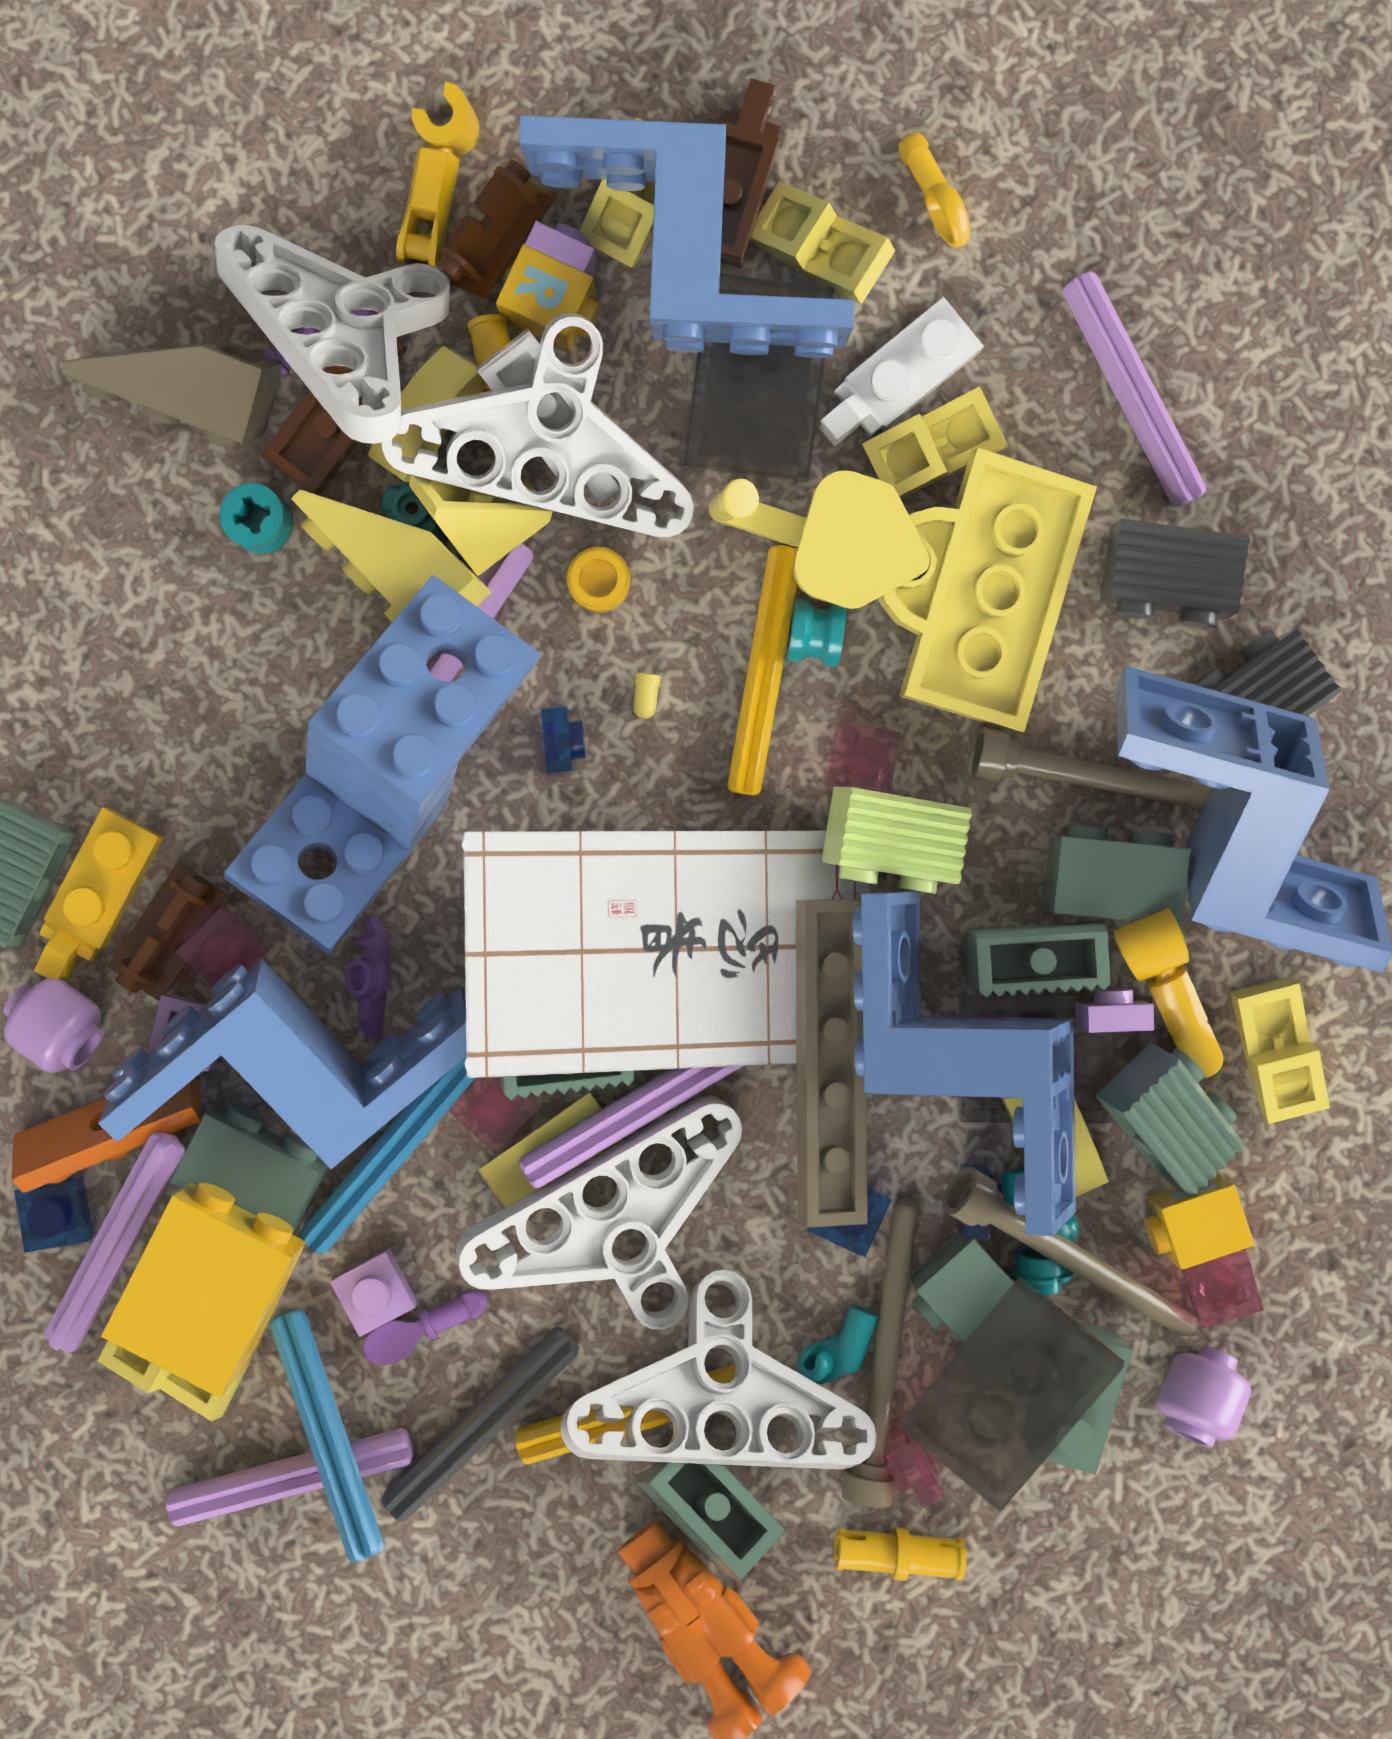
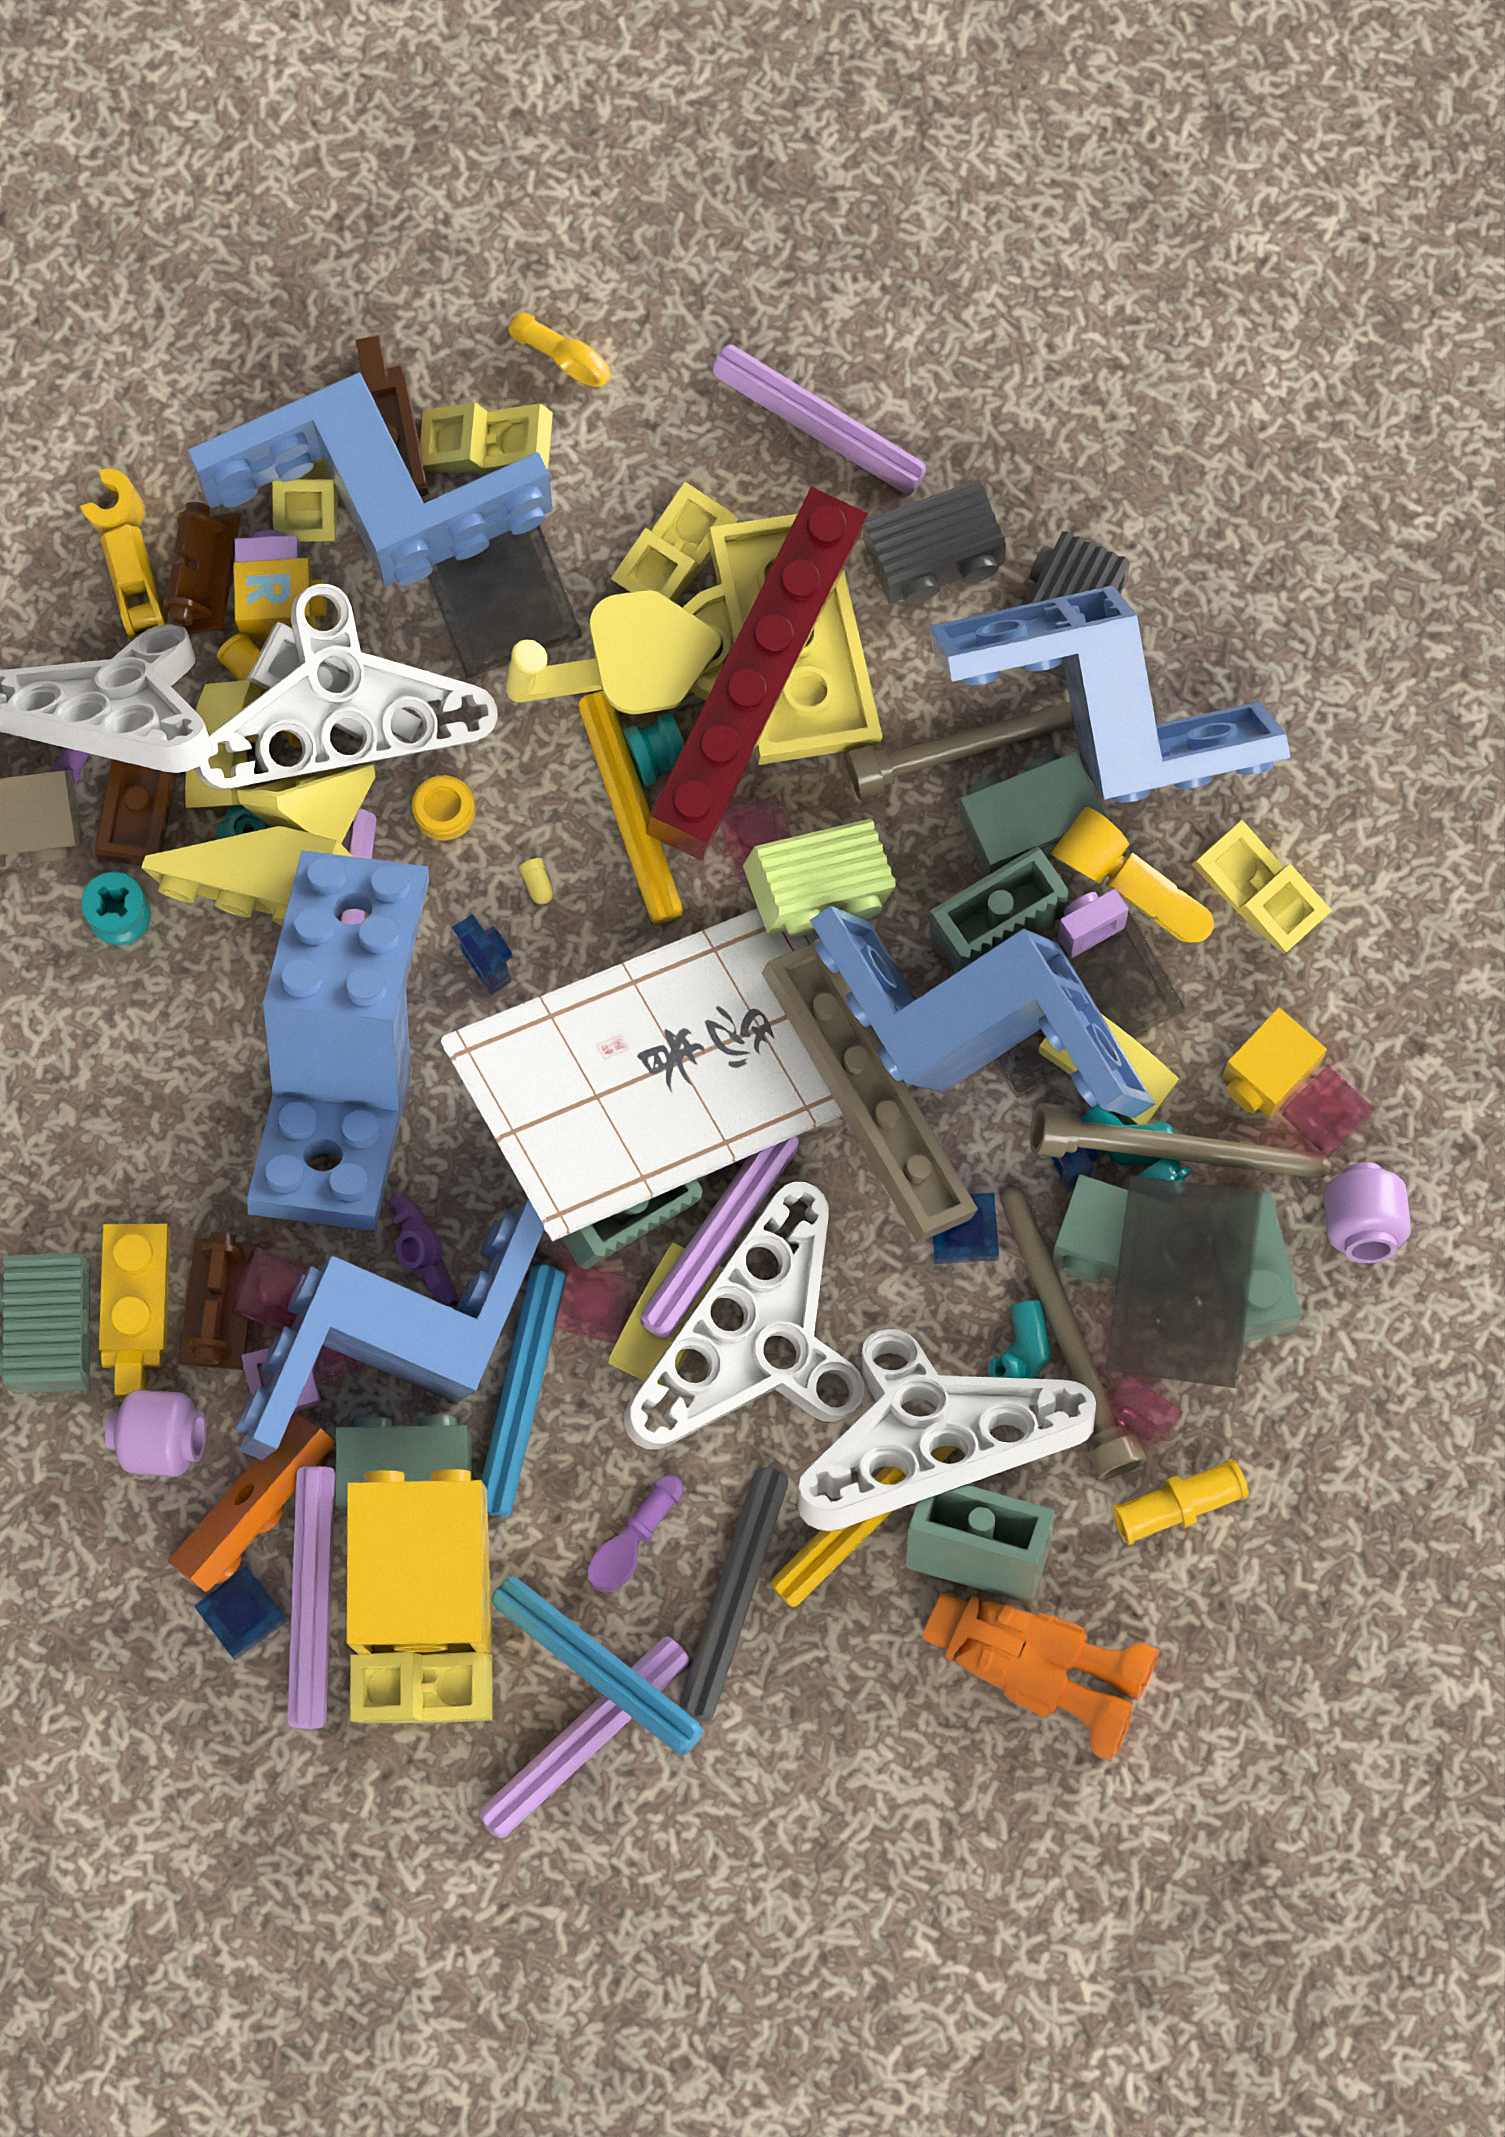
camera: 25 degrees left, 15 degrees down
(374, 1292) = (572, 1527): lavender plate -> none
(902, 373) = (613, 507): white hinge -> none
(948, 617) = (755, 673): none -> dark red arch
(1172, 1118) = (1193, 984): sand green brick -> none

